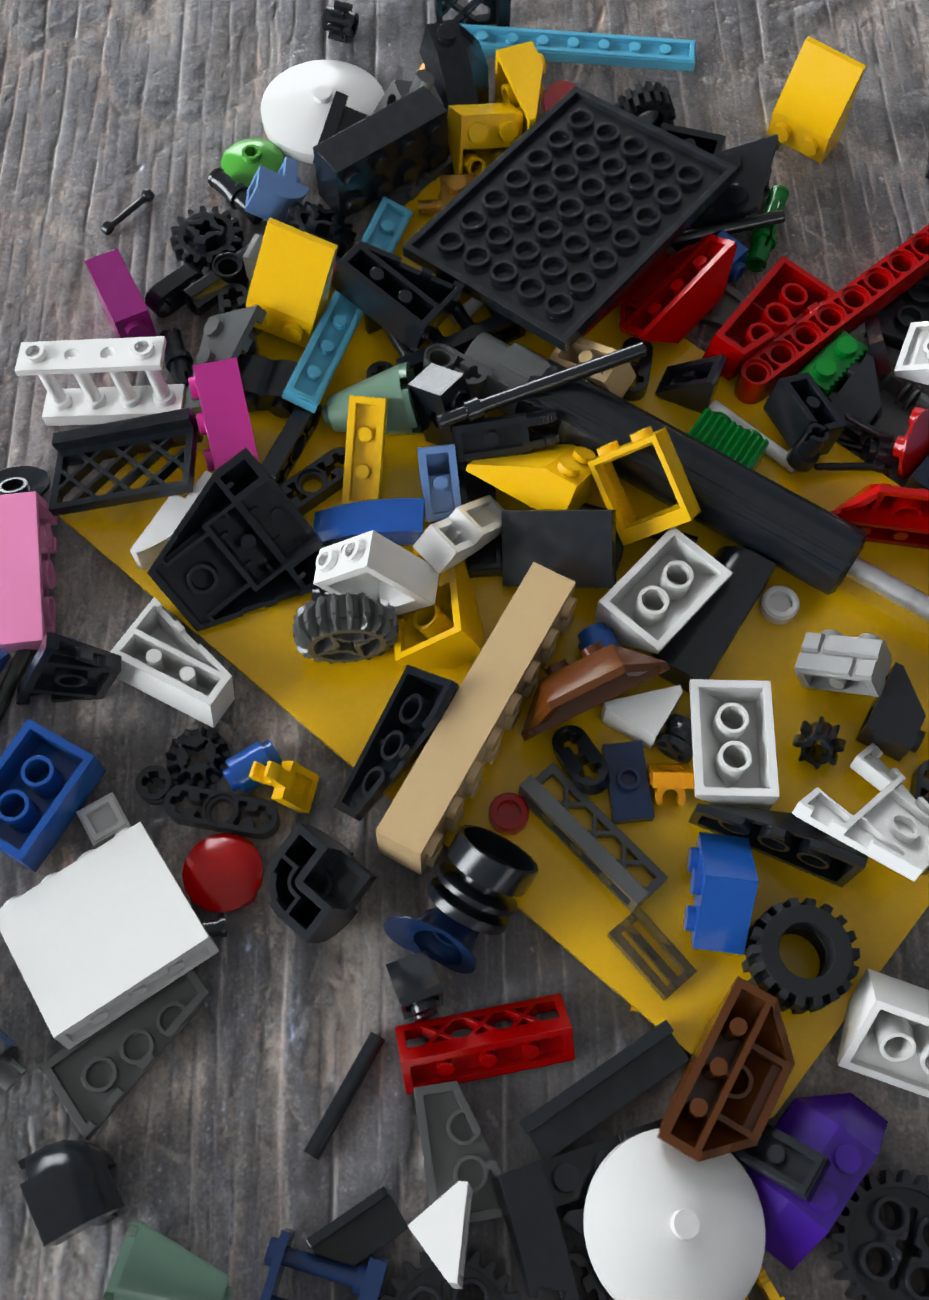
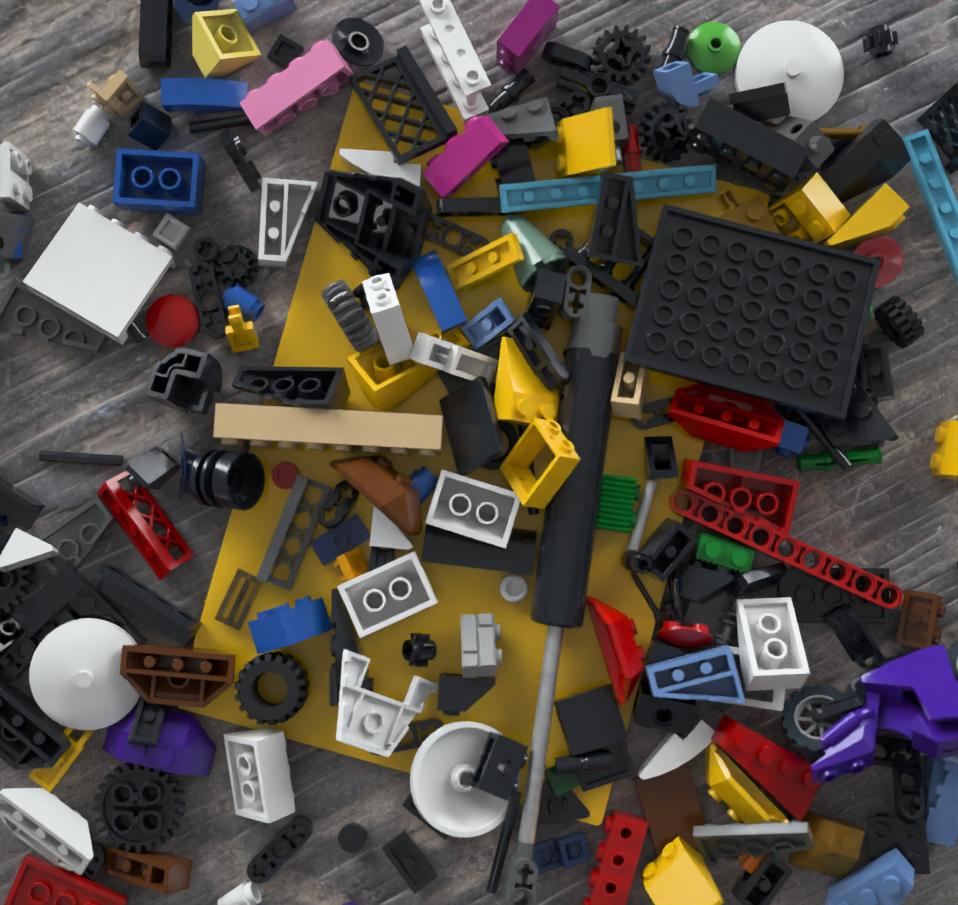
camera: 70 degrees right, 20 degrees up
(475, 408) = (541, 323): black bar -> none

